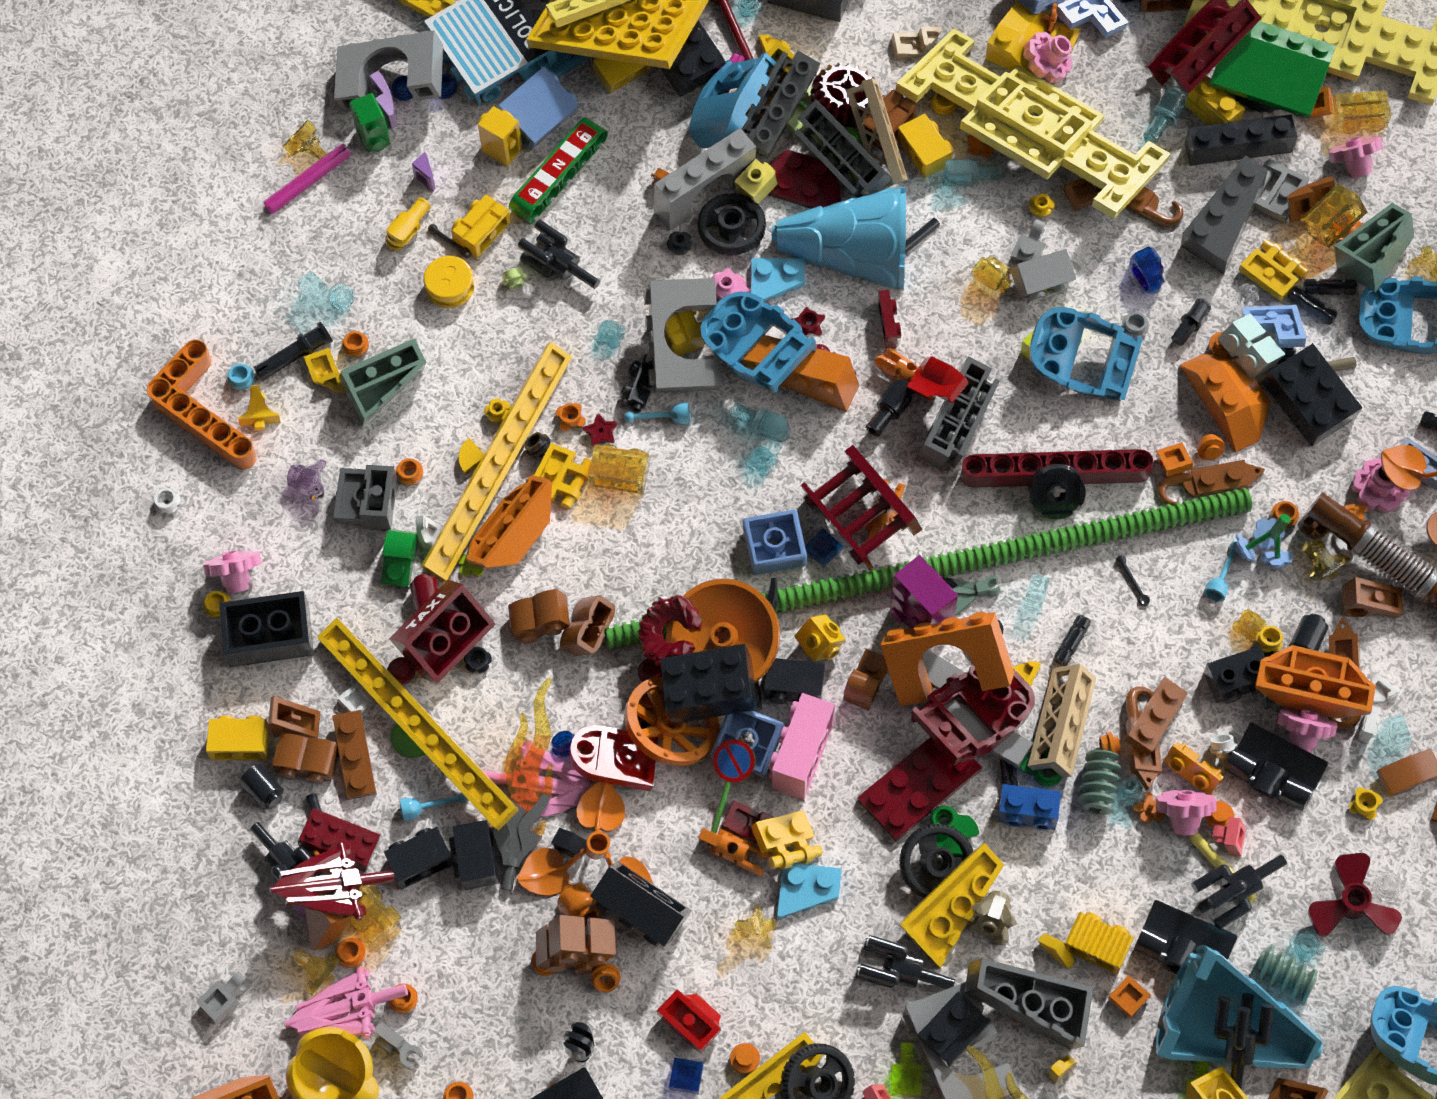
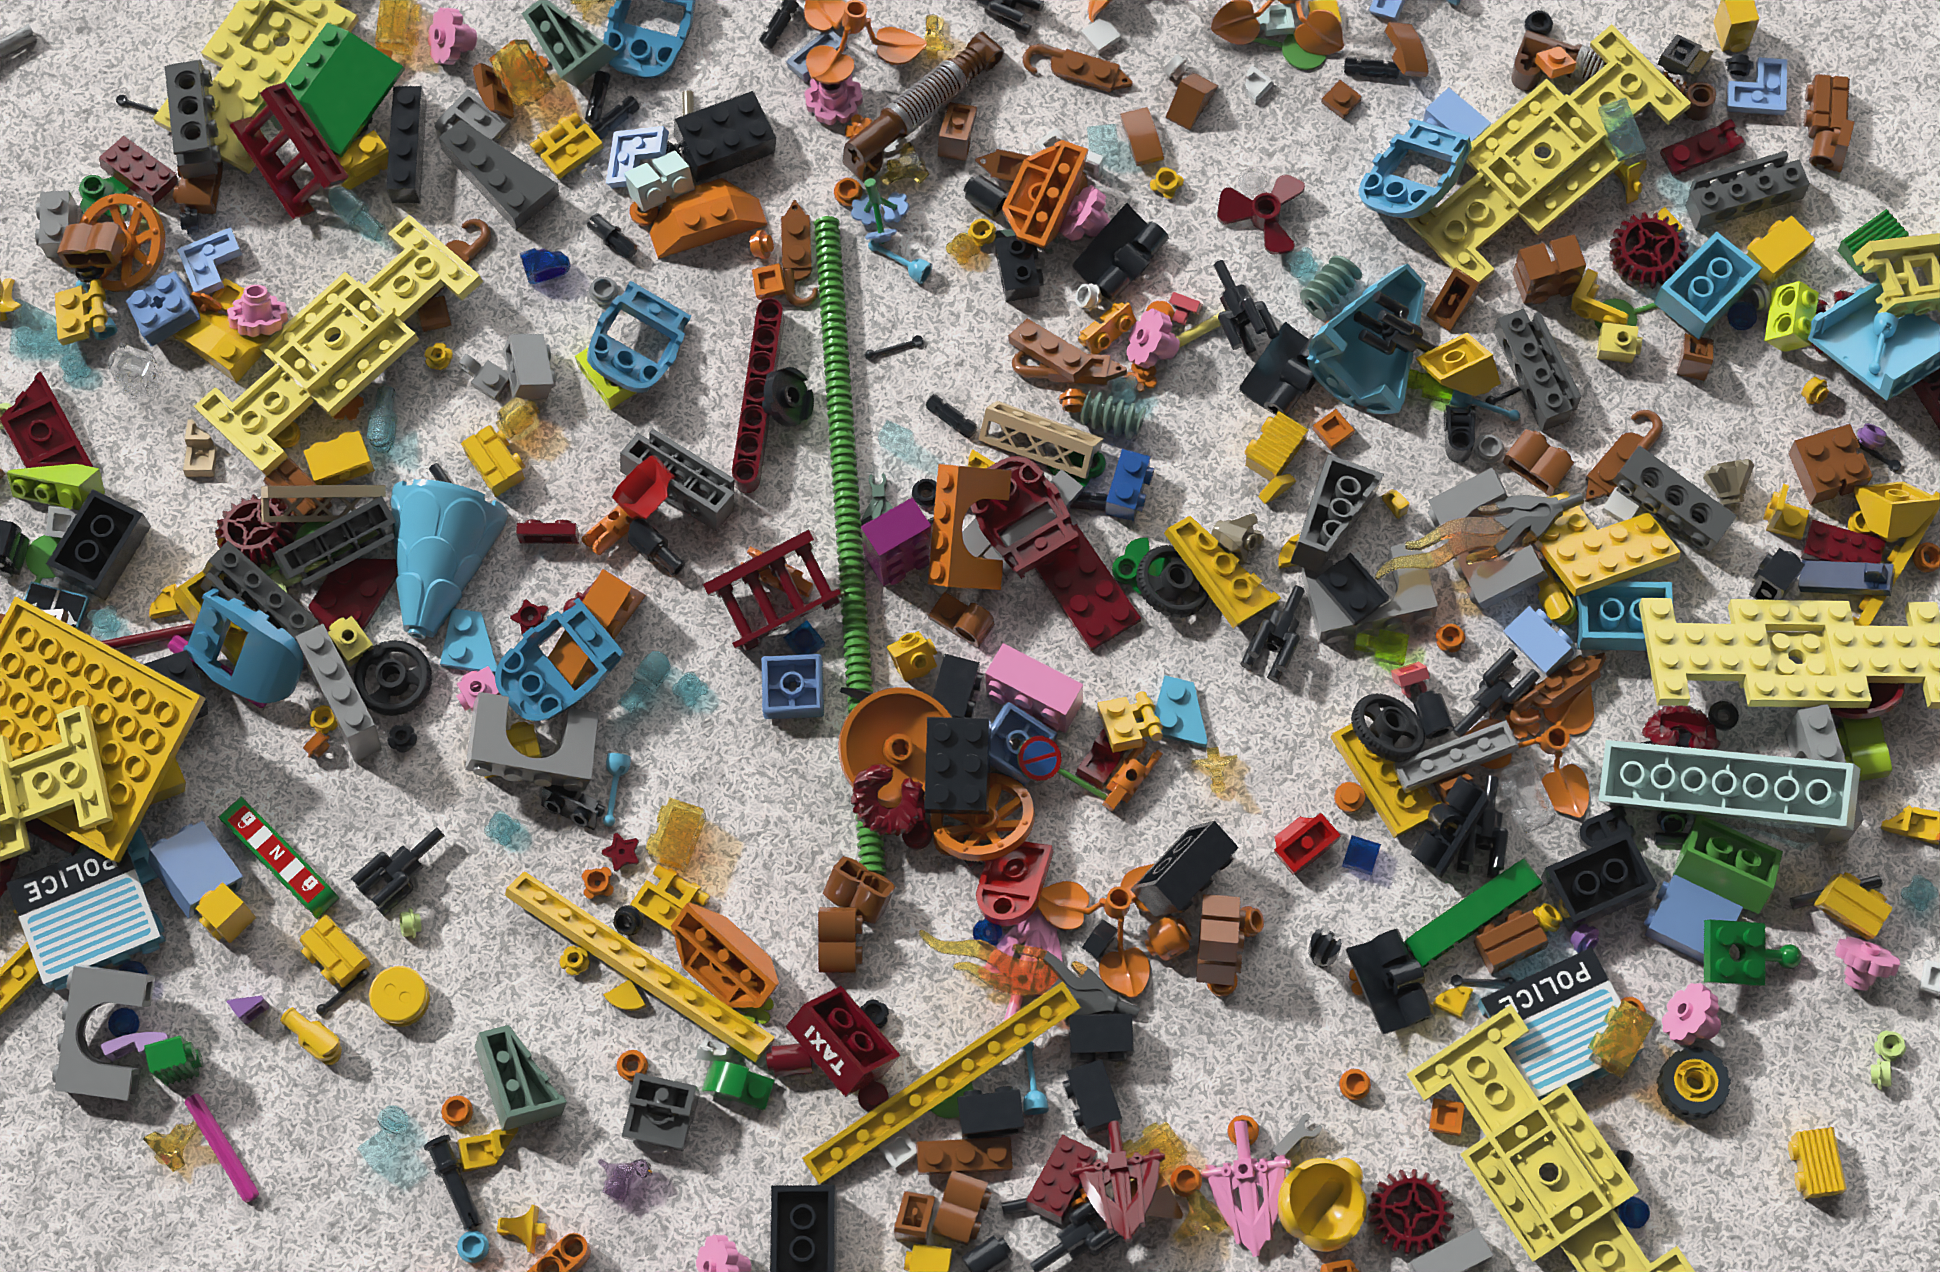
camera: 80 degrees left, 5 degrees up
(392, 769) = (991, 1113): none -> black brick
(948, 264) = (493, 460): none -> yellow brick

